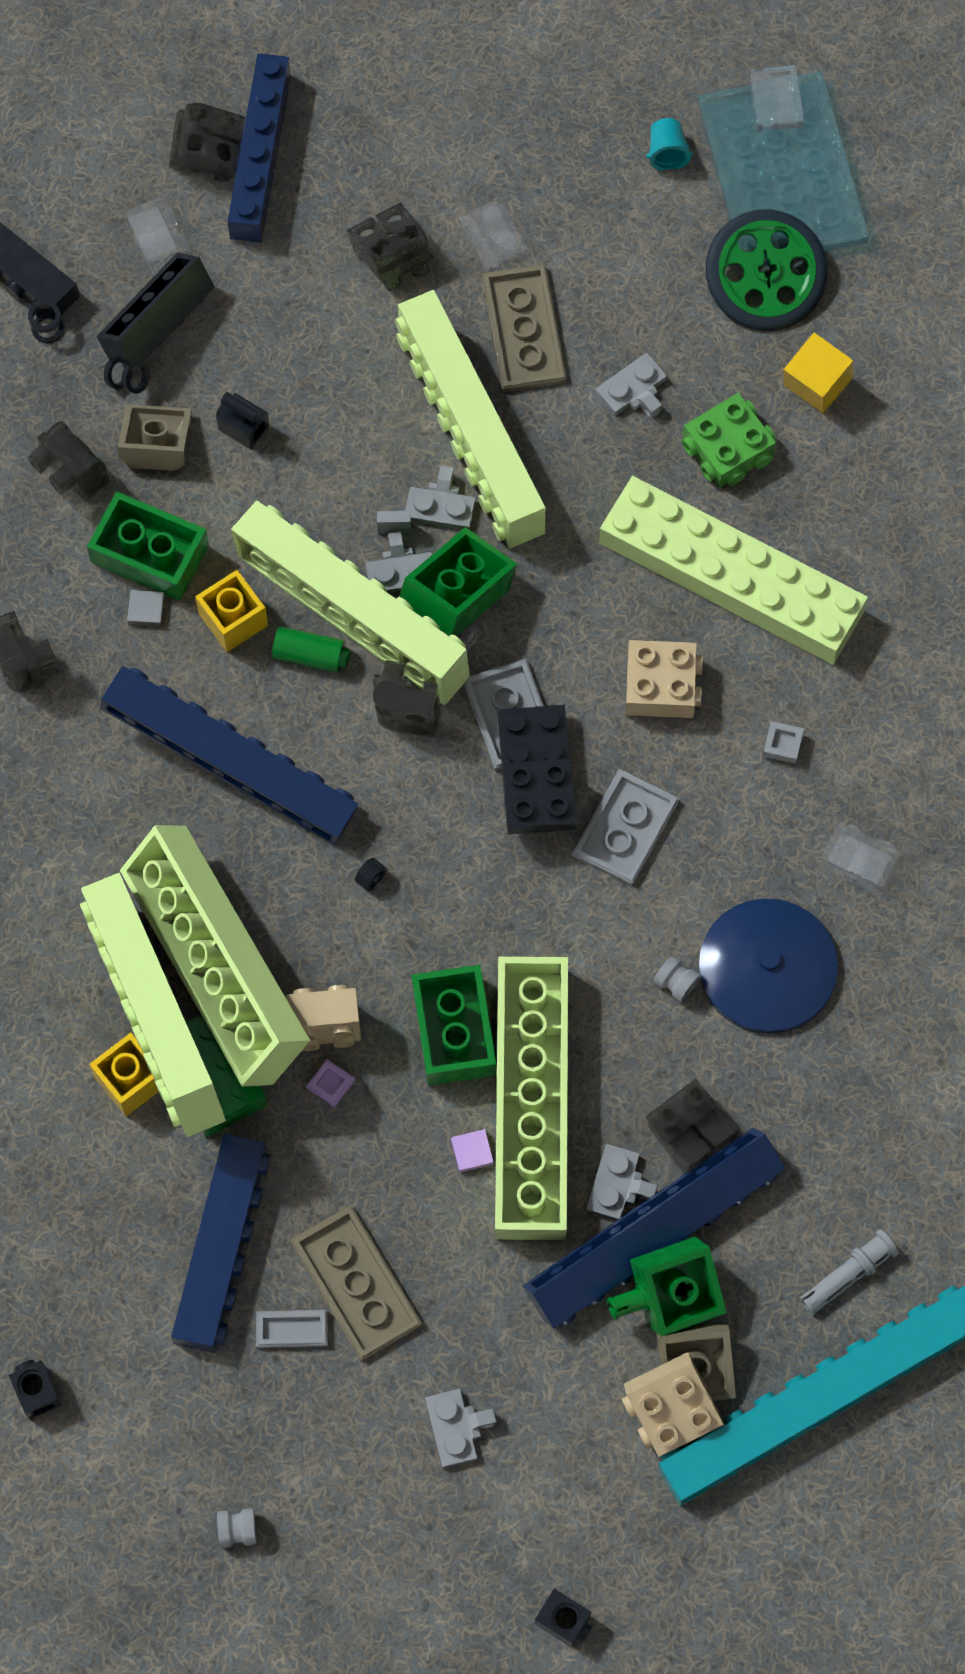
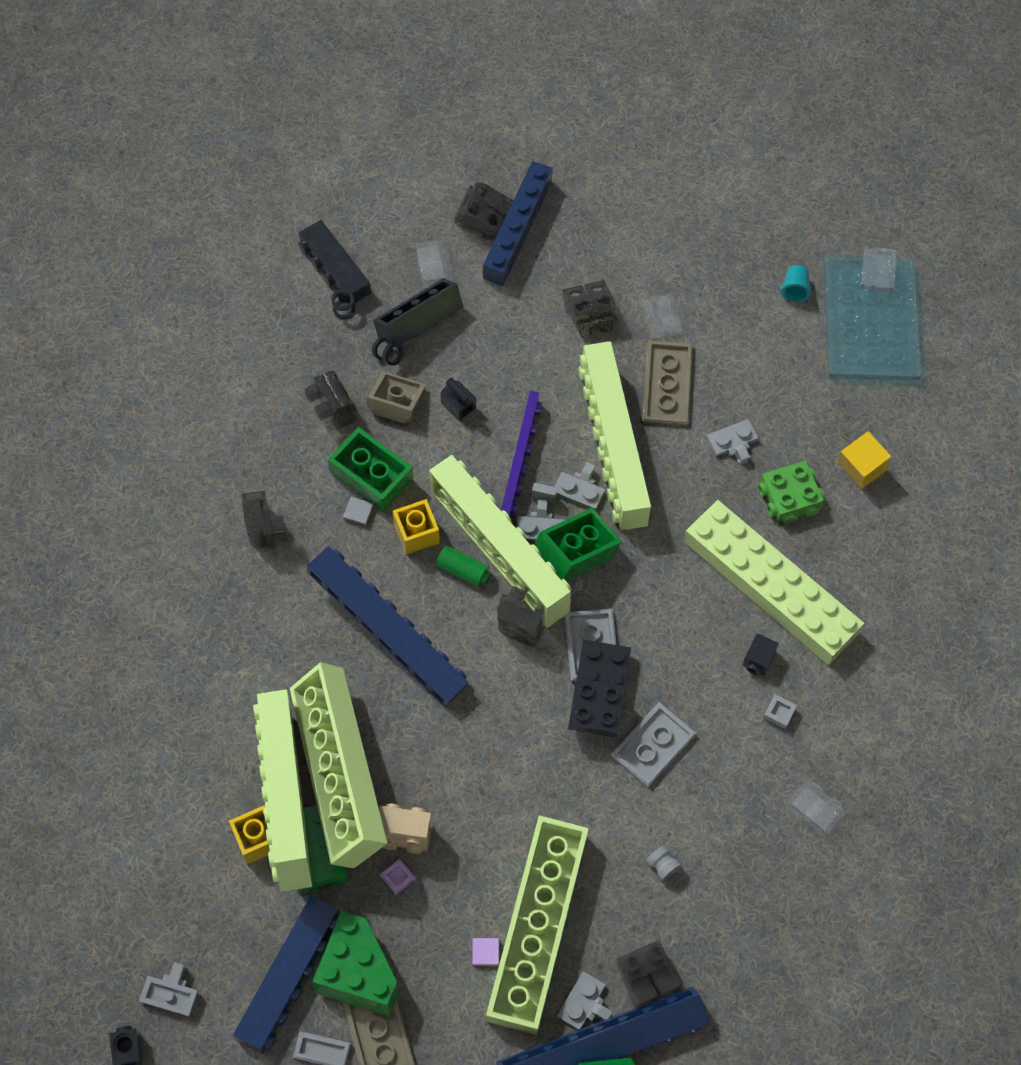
camera: 10 degrees right, 5 degrees down
(72, 1305) = (170, 992): none -> light grey hinge
(310, 1212) = (356, 968): none -> green brick
(349, 468) = (523, 448): none -> dark purple plate
(370, 874) = (464, 734): black axle -> none
(454, 1025) = (495, 857): green brick -> none
(662, 679) = (705, 646): tan brick -> none
(739, 673) = (760, 655): none -> black brick
(768, 966) = (731, 870): dark blue dish -> none
(801, 244) = (869, 400): wedge -> none

